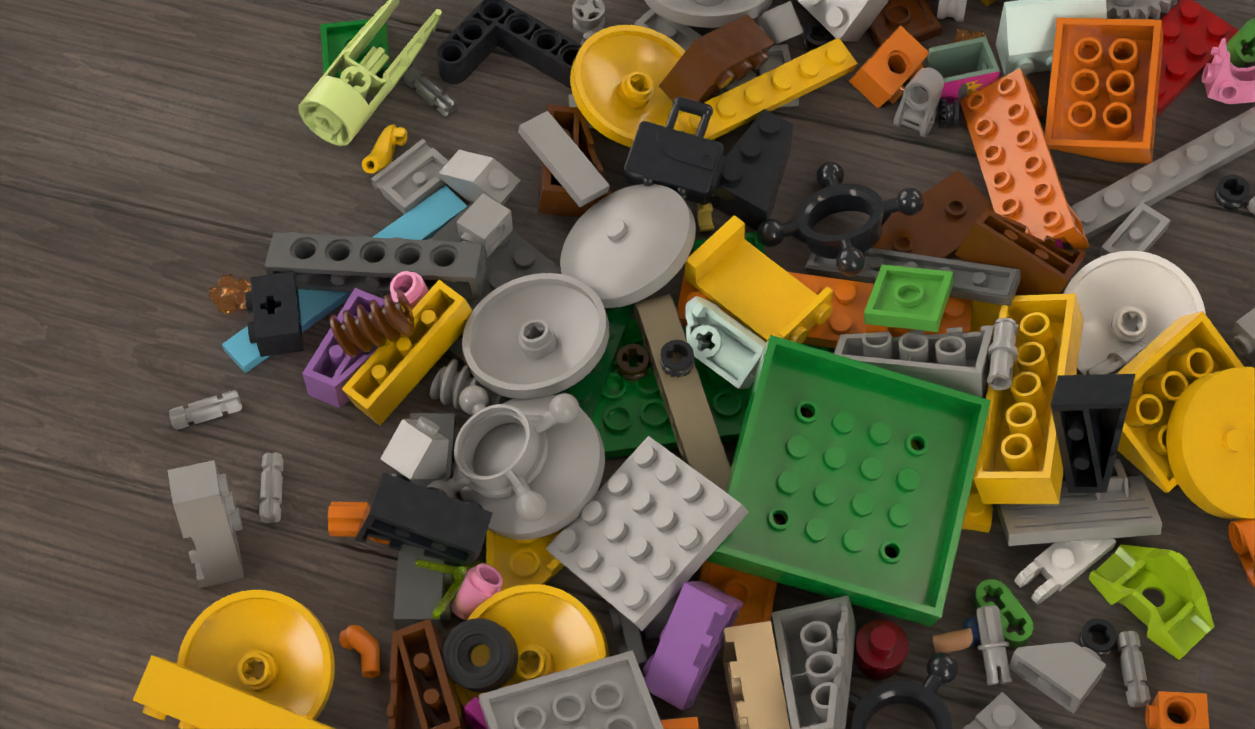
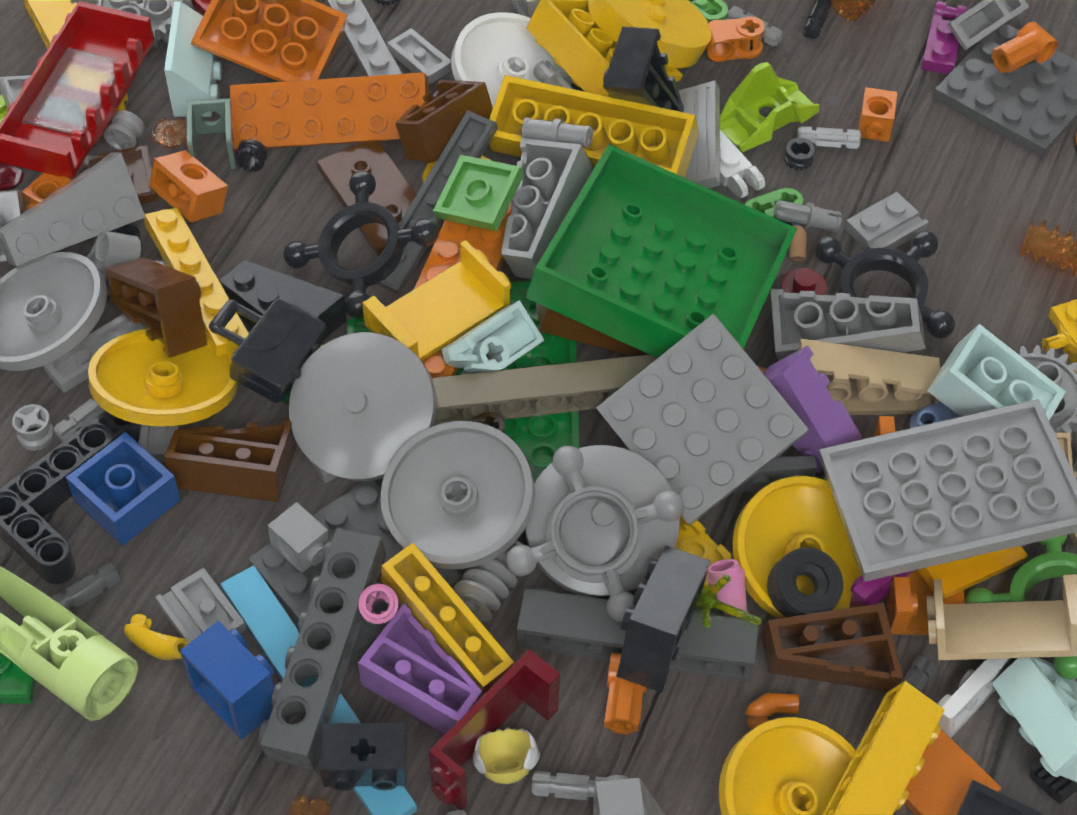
camera: 85 degrees left, 5 degrees down
(291, 426) = (506, 755): none -> light yellow hair
(338, 198) = (230, 678): none -> blue brick
(350, 421) = (527, 681): none -> dark red panel
(375, 326) = (428, 629): reddish brown piece -> none
(418, 450) = (594, 596): light grey slope -> none
(478, 174) = (231, 541): light grey slope -> none
(522, 86) = (123, 488): none -> blue brick
(563, 158) = (242, 447): light grey tile -> none
(686, 362) = (505, 386): black bush -> none
(917, 106) = (240, 167): light grey piece -> none
(1059, 671) = (835, 175): light grey slope -> none

